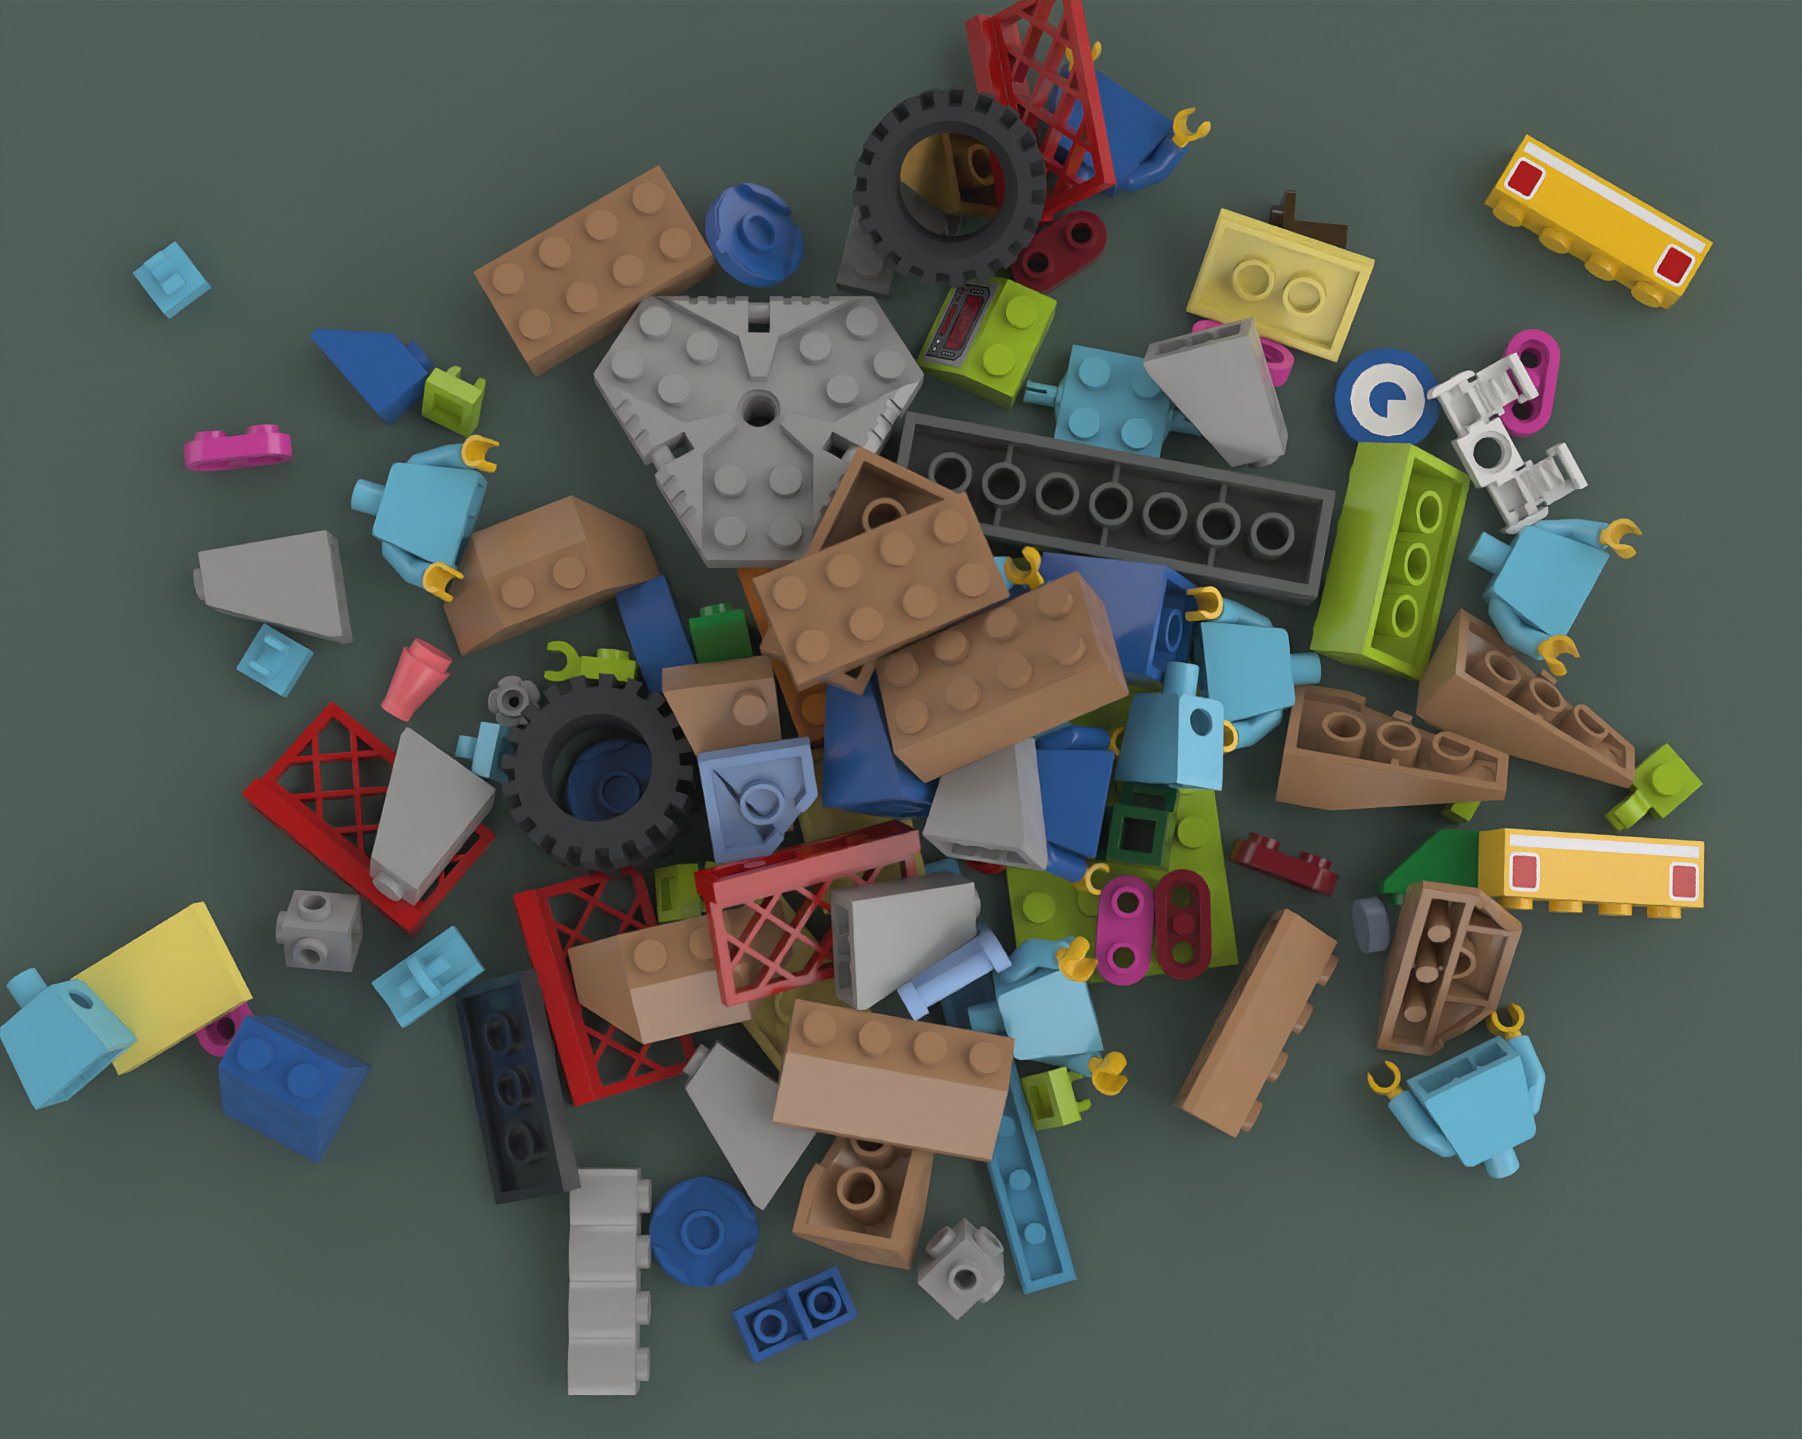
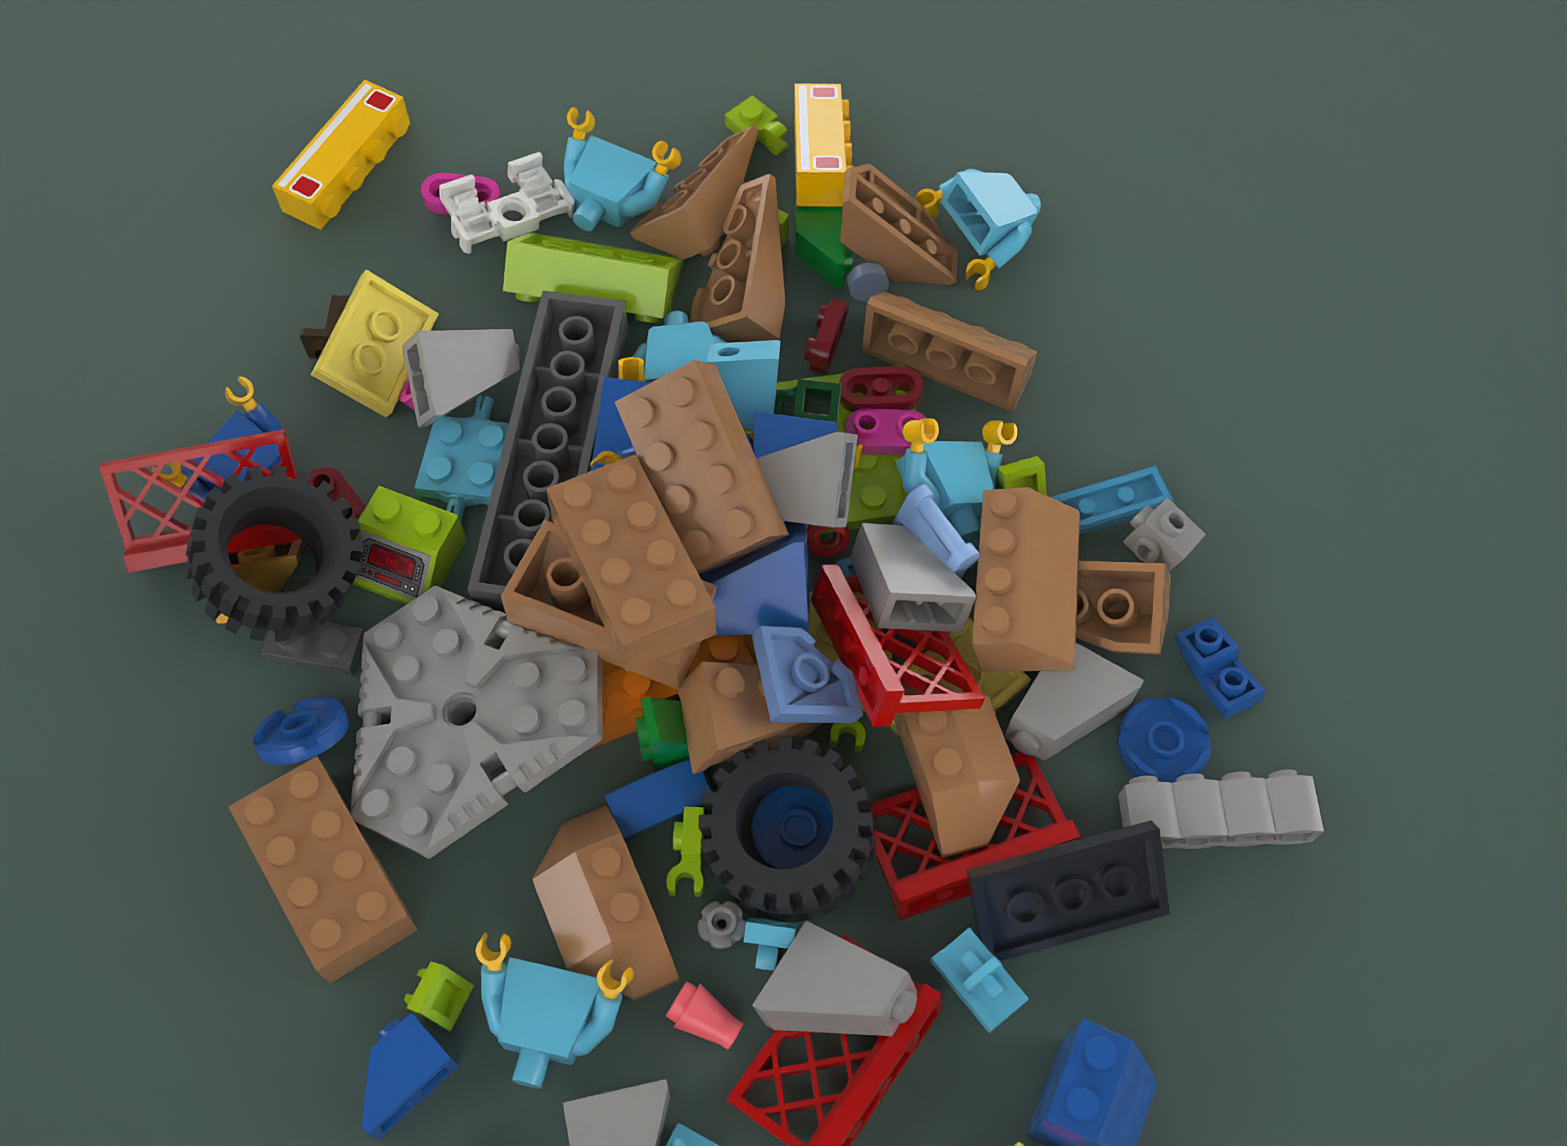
camera: 100 degrees left, 20 degrees down
(321, 930) = (946, 1085): light grey brick -> none
(677, 893) = (884, 769): lime tile -> none
(1385, 398) = (469, 283): tile -> none

